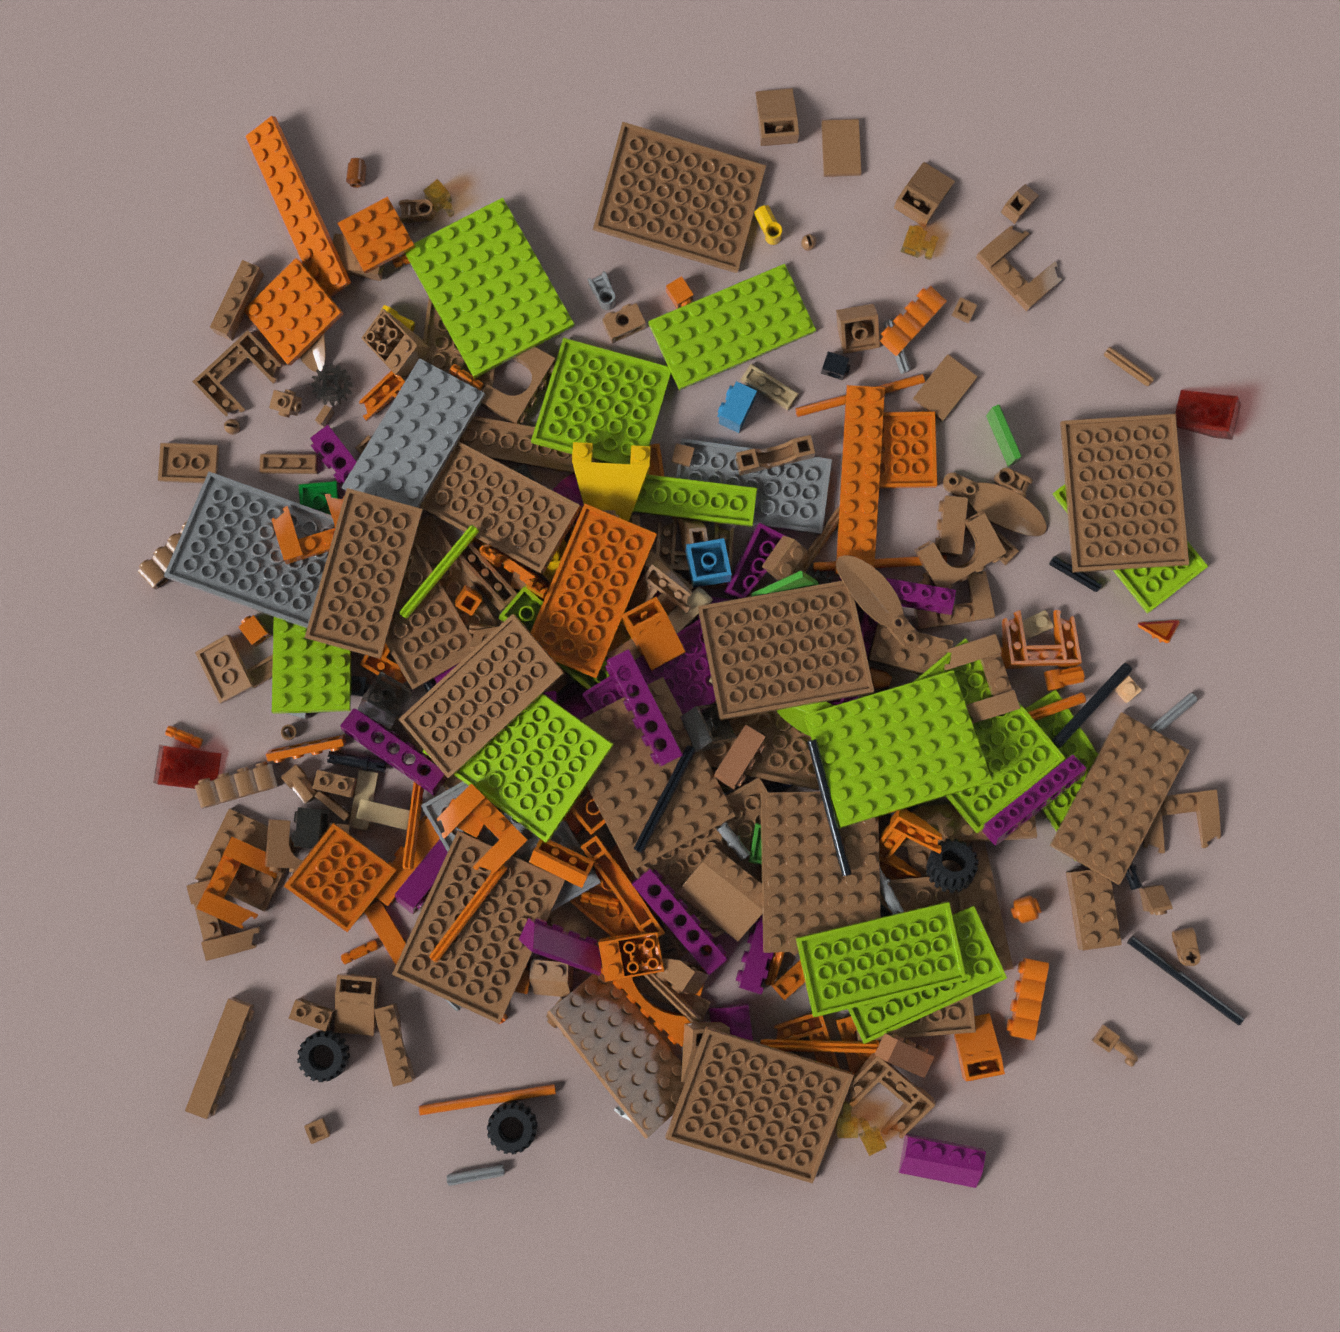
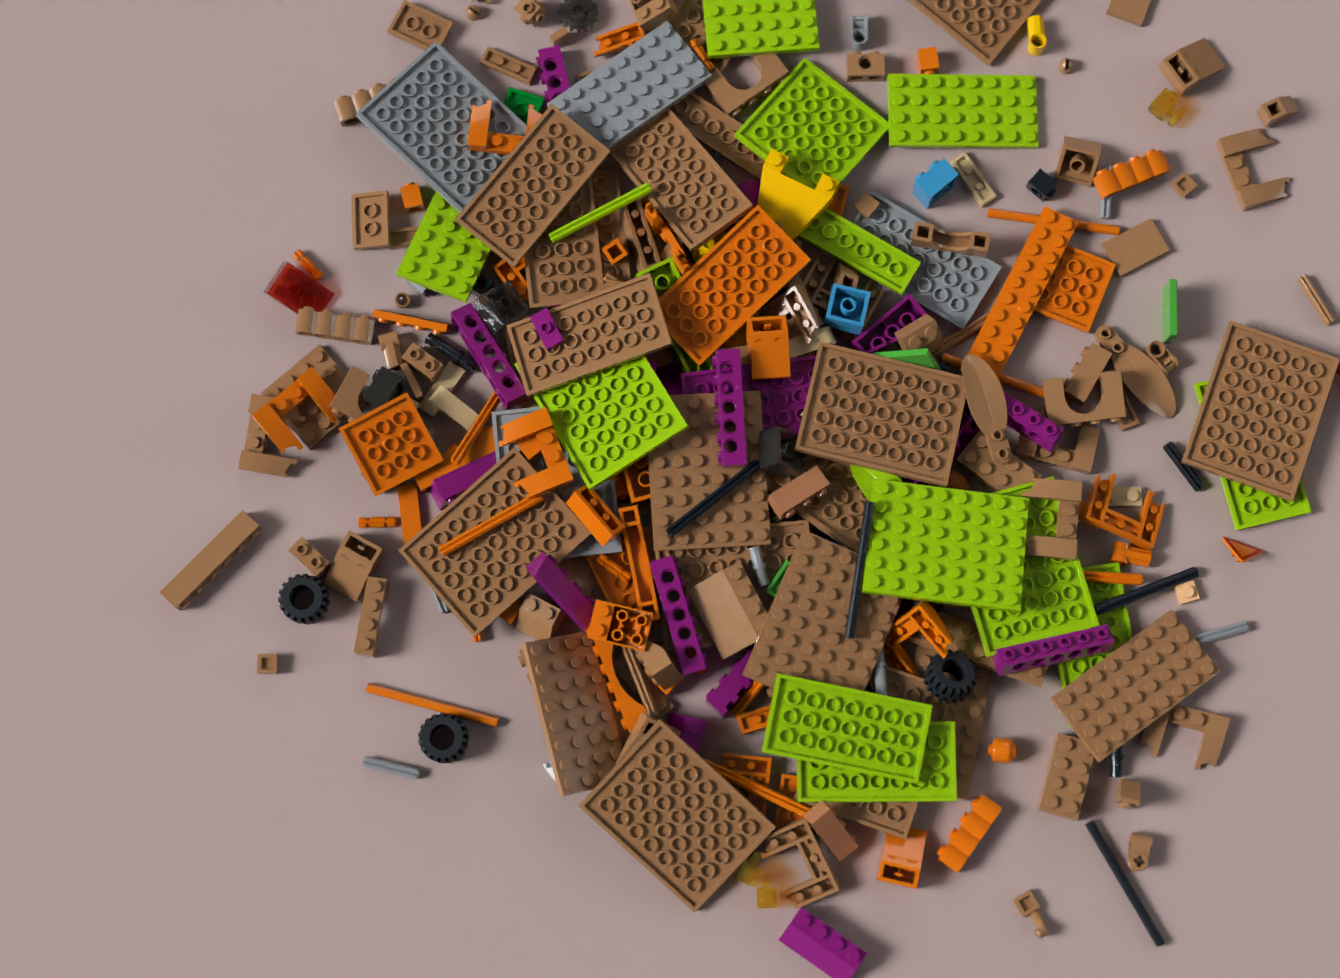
camera: 30 degrees right, 5 degrees down
(439, 707) = (547, 329): none -> magenta plate

